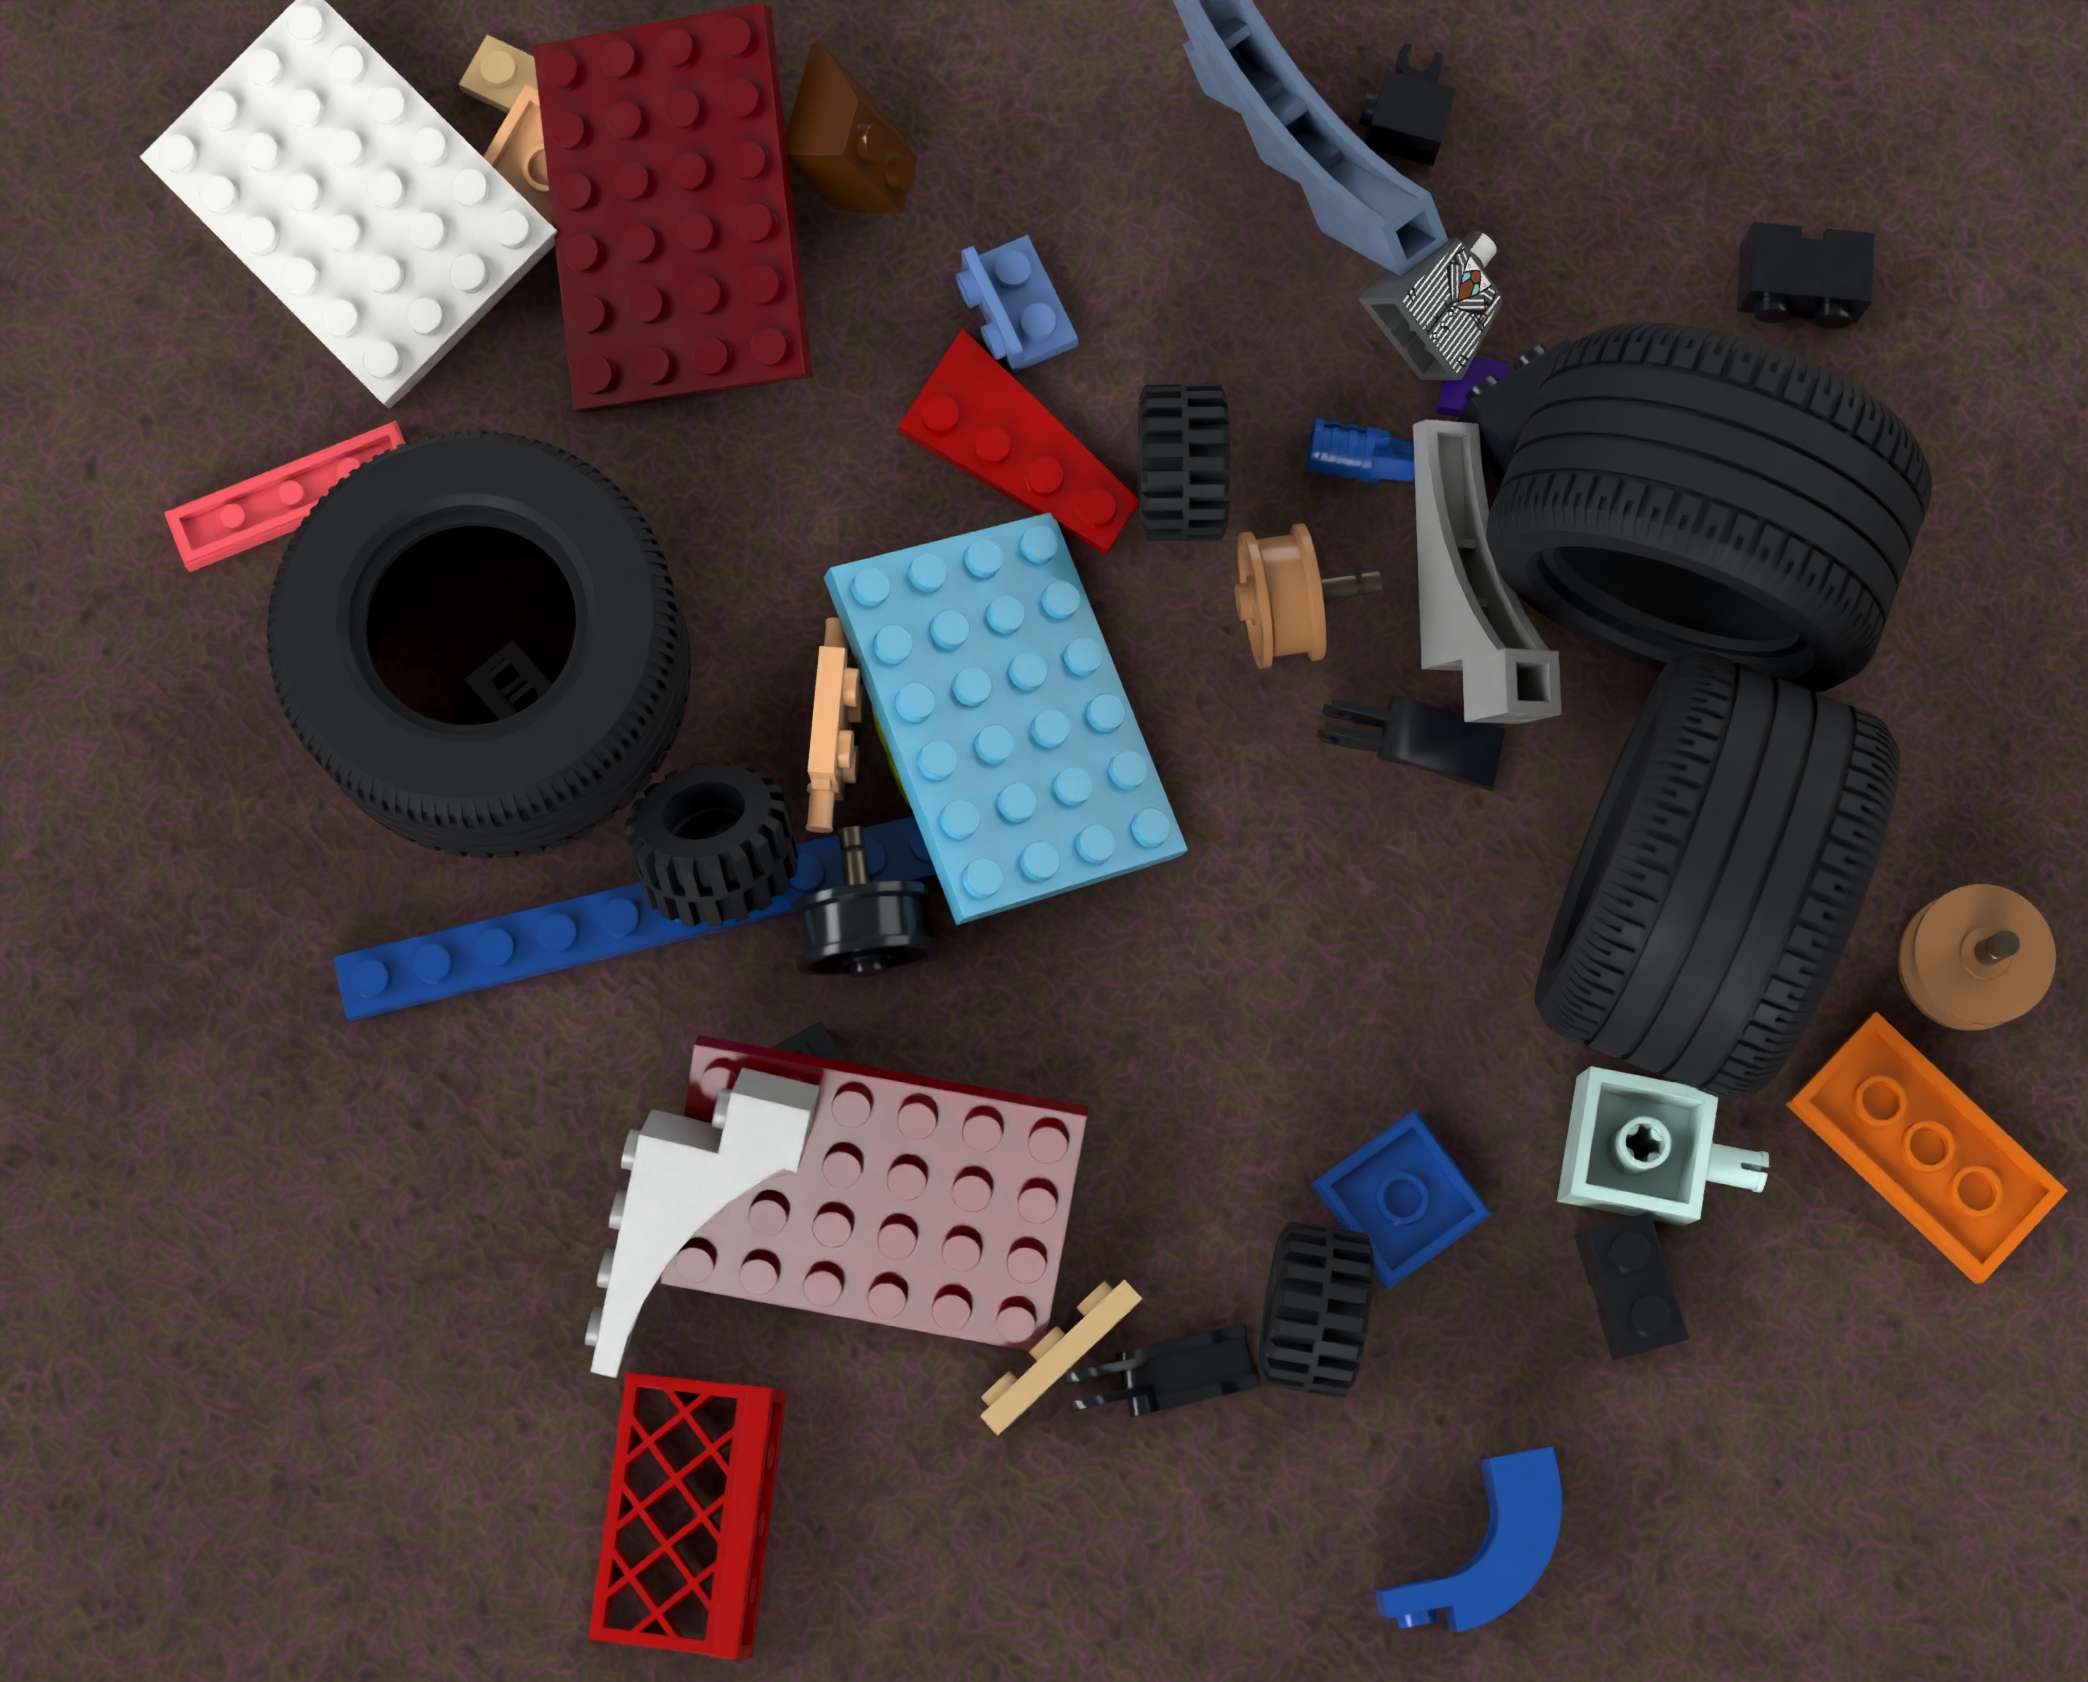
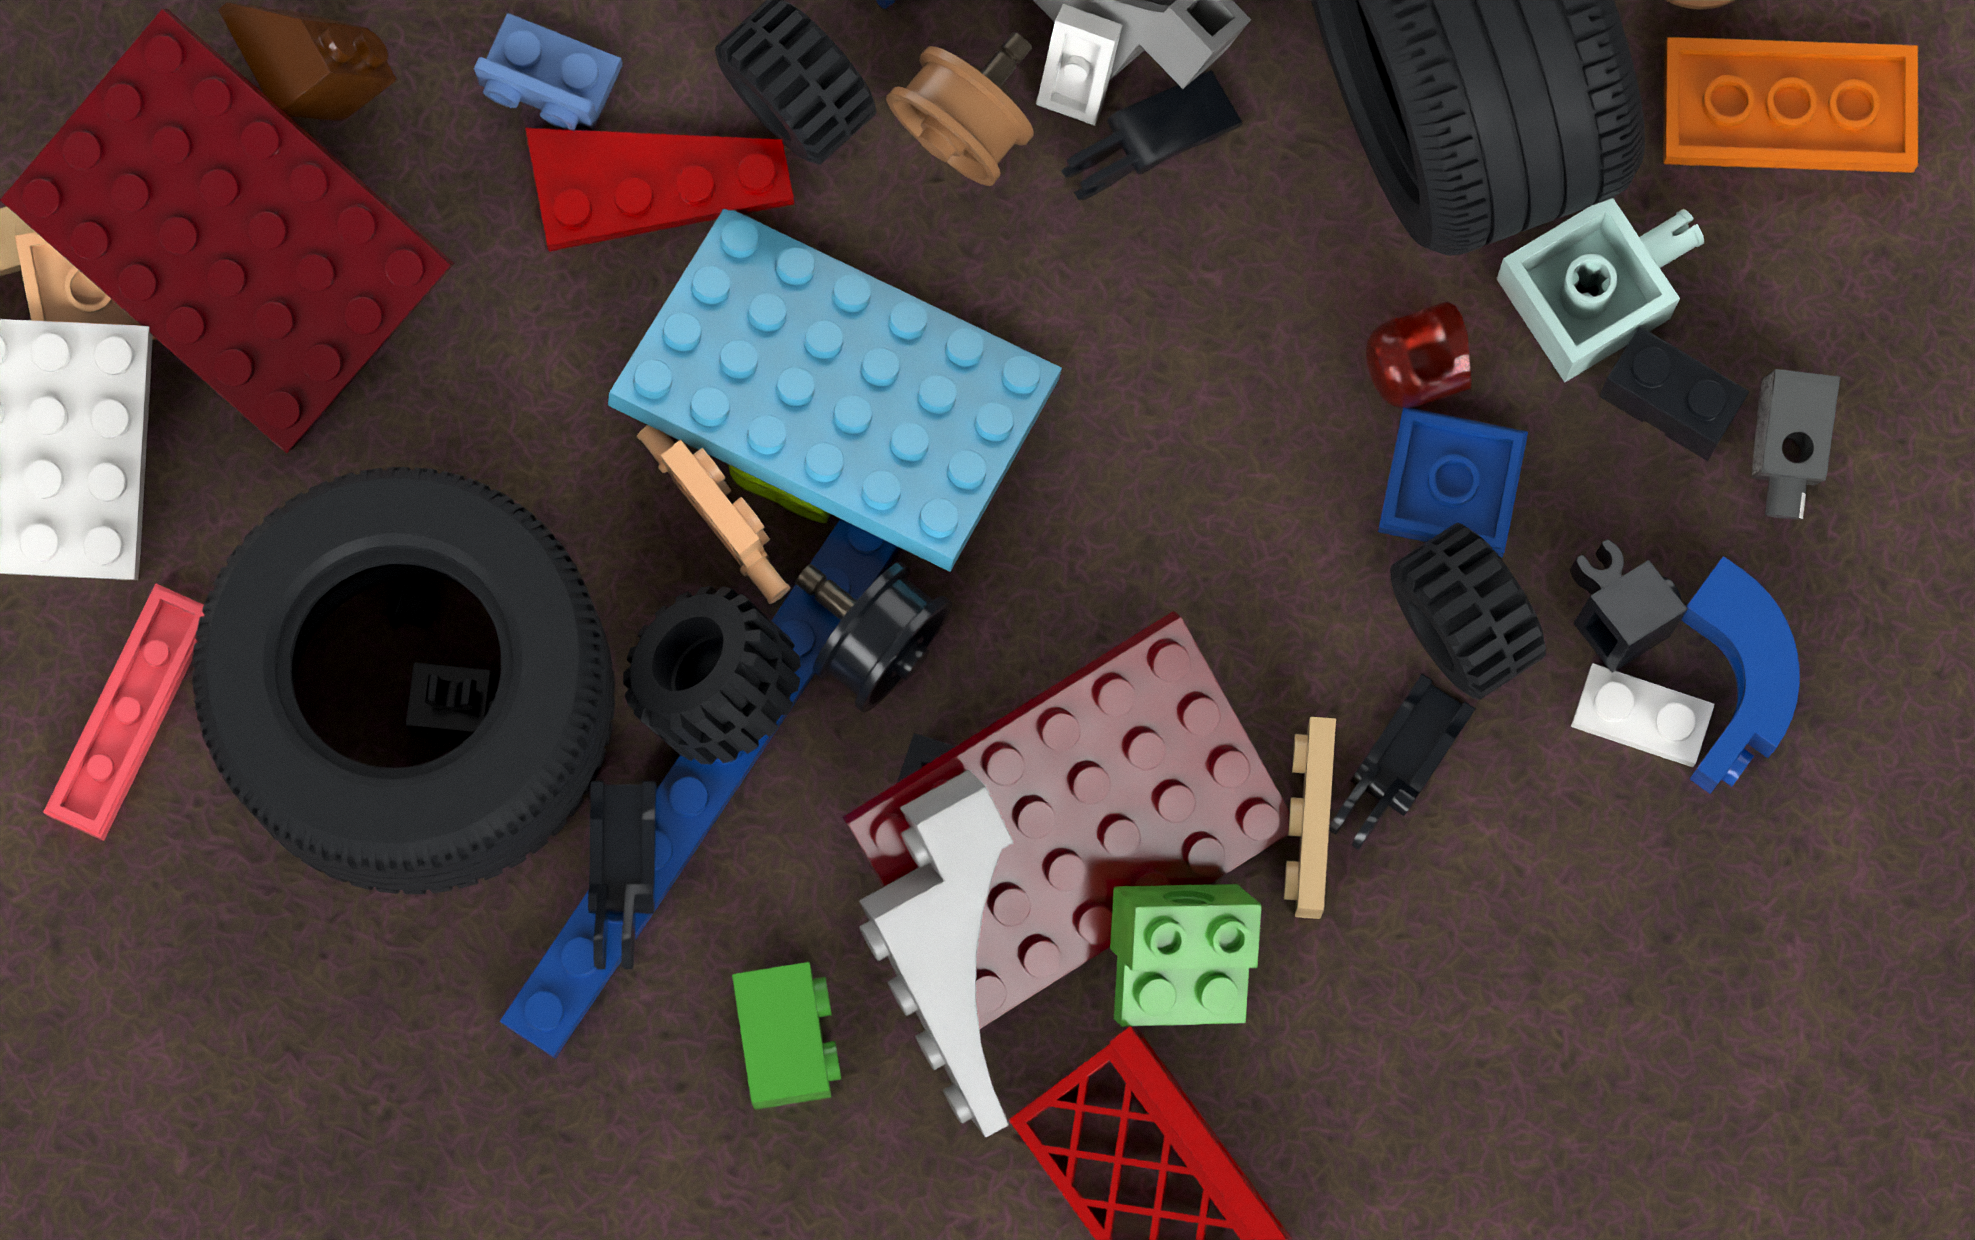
camera: 35 degrees left, 0 degrees up
(518, 924) = (621, 861): none -> black arm
(522, 1157) = (784, 1035): none -> bright green brick
(865, 1369) = (1183, 953): none -> brick
(1382, 1509) = (1642, 715): none -> white plate
(1406, 635) = (1079, 64): none -> white plate
(1439, 1419) = (1626, 611): none -> black brick
(1477, 1069) = (1427, 336): none -> clear red helmet
(1720, 1395) = (1801, 410): none -> dark grey torso

